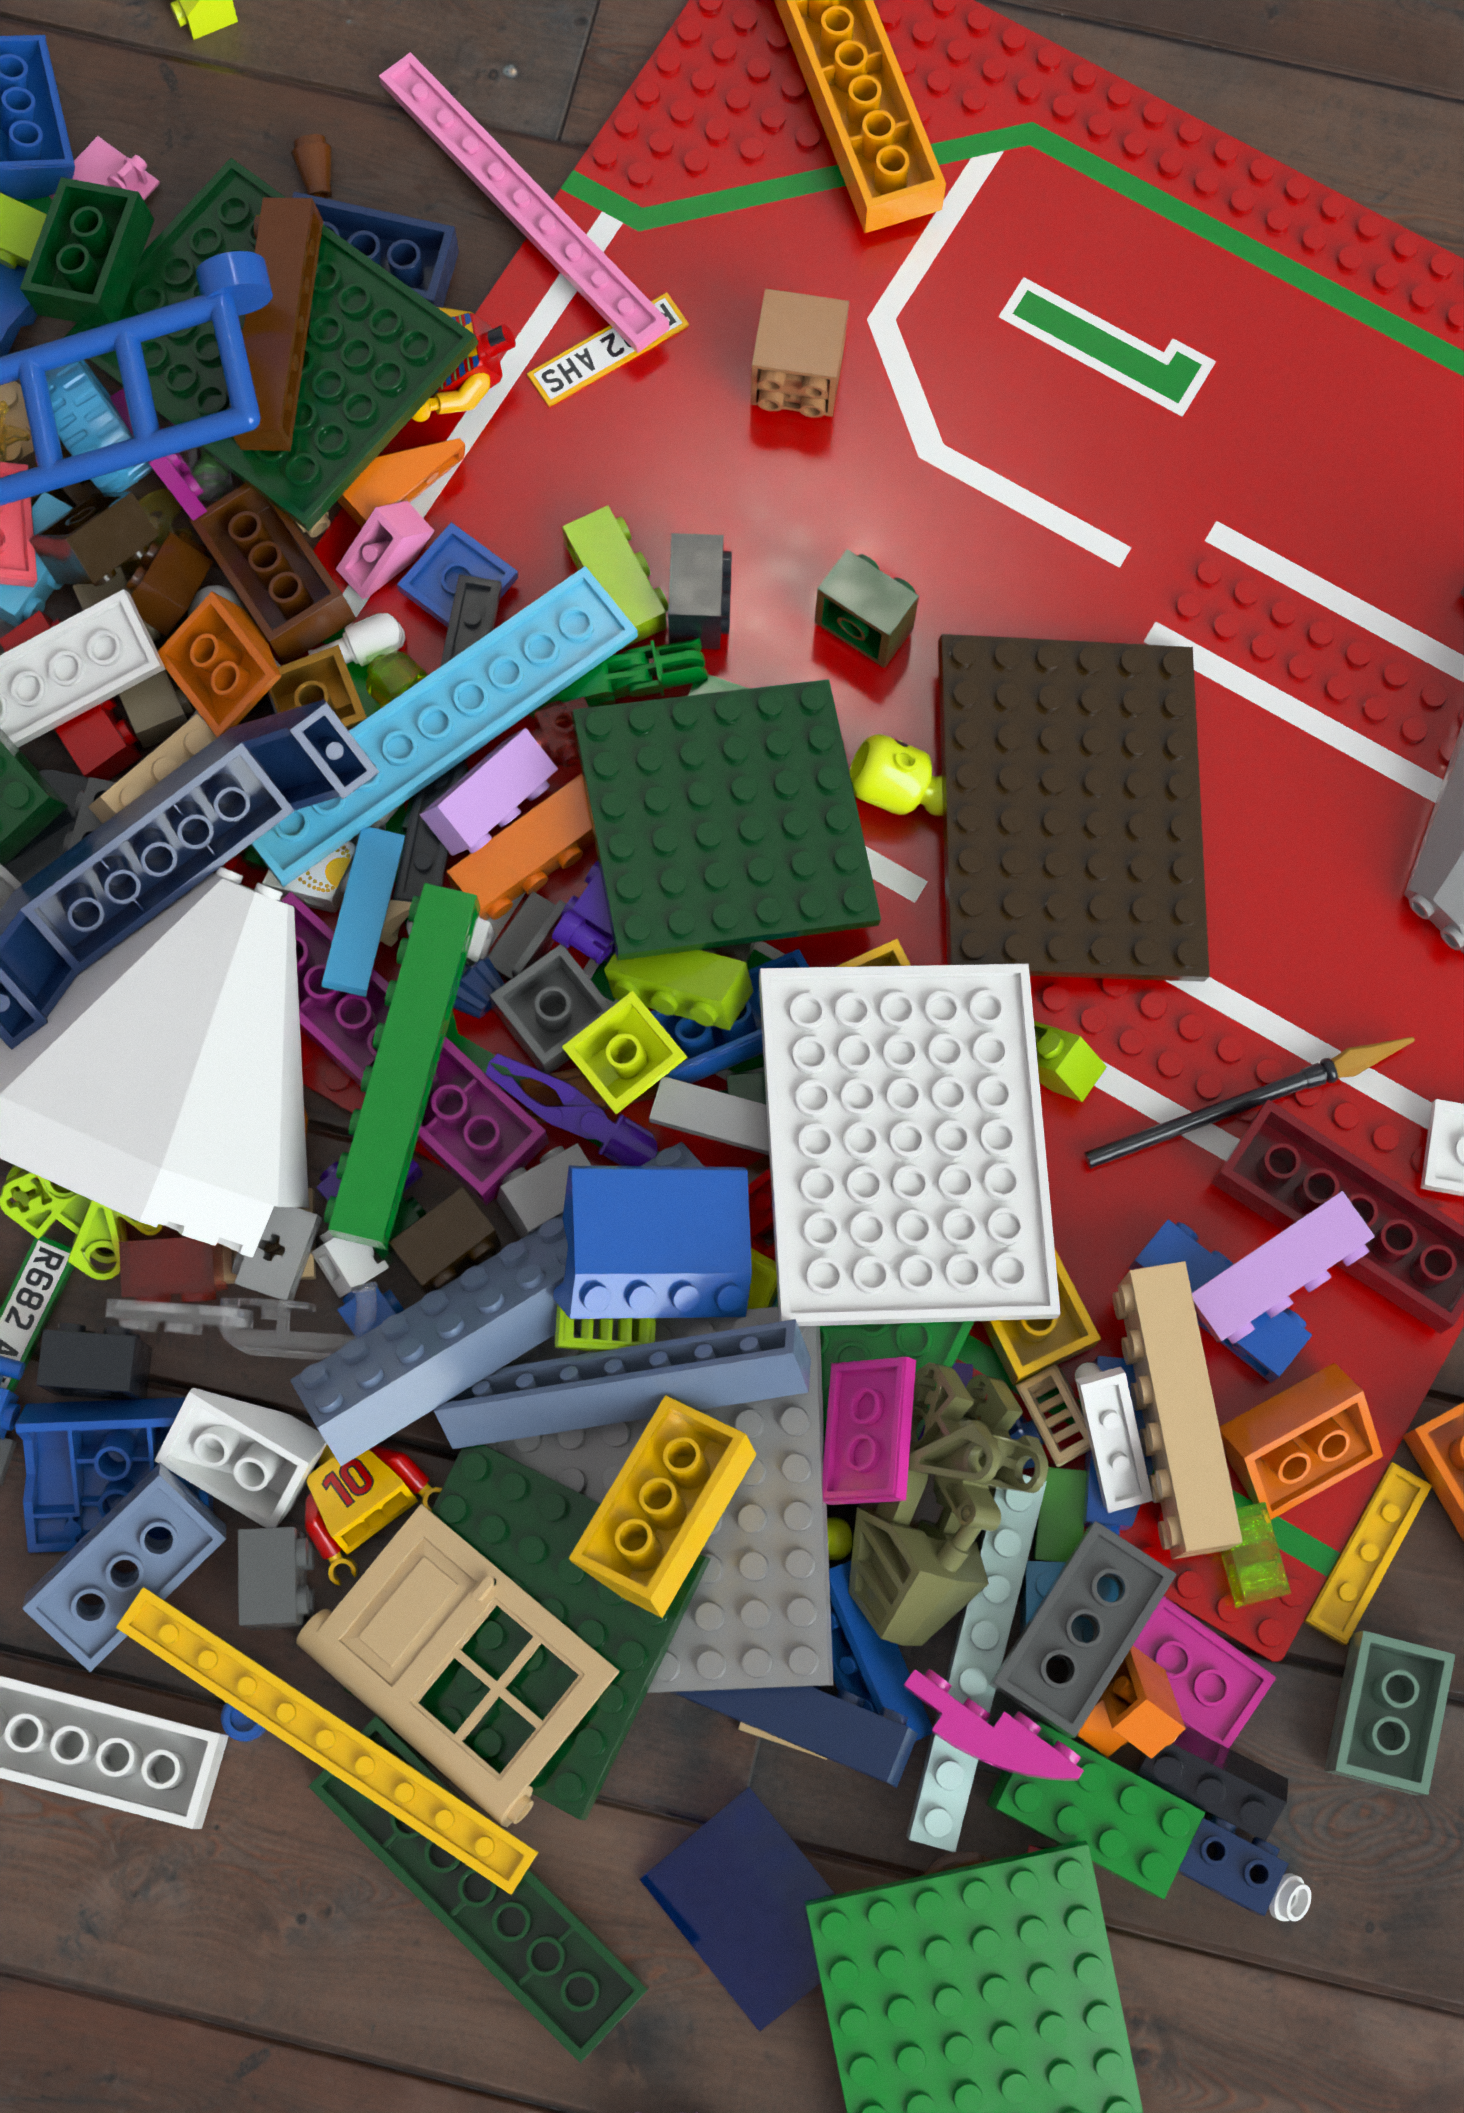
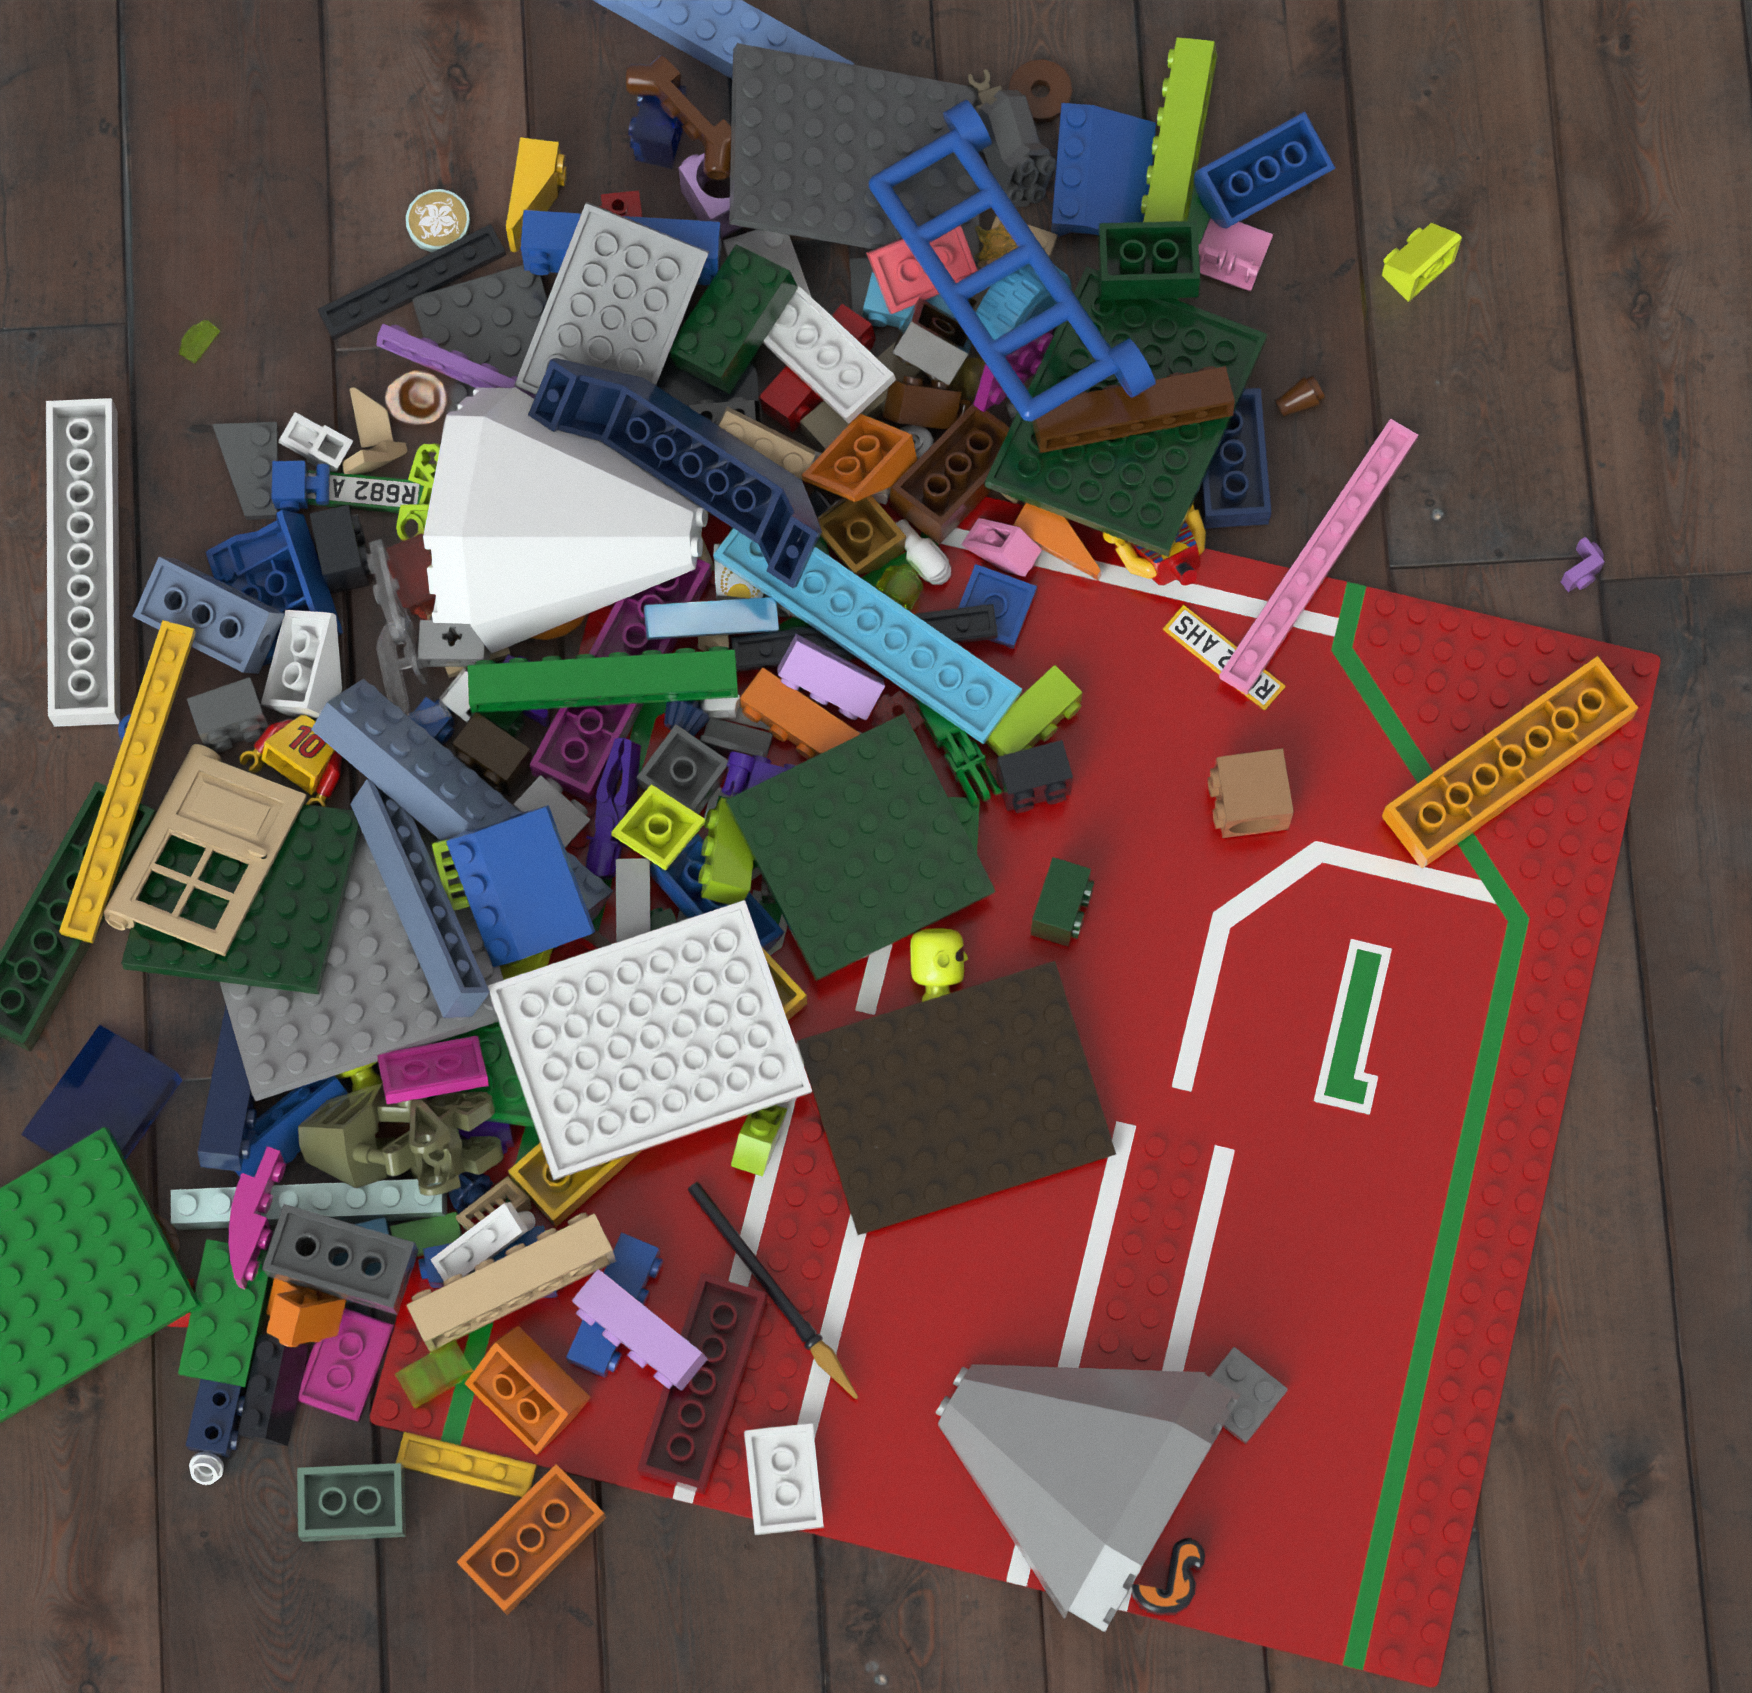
camera: 75 degrees right, 0 degrees up
(664, 1505) = (339, 945): yellow slope -> none

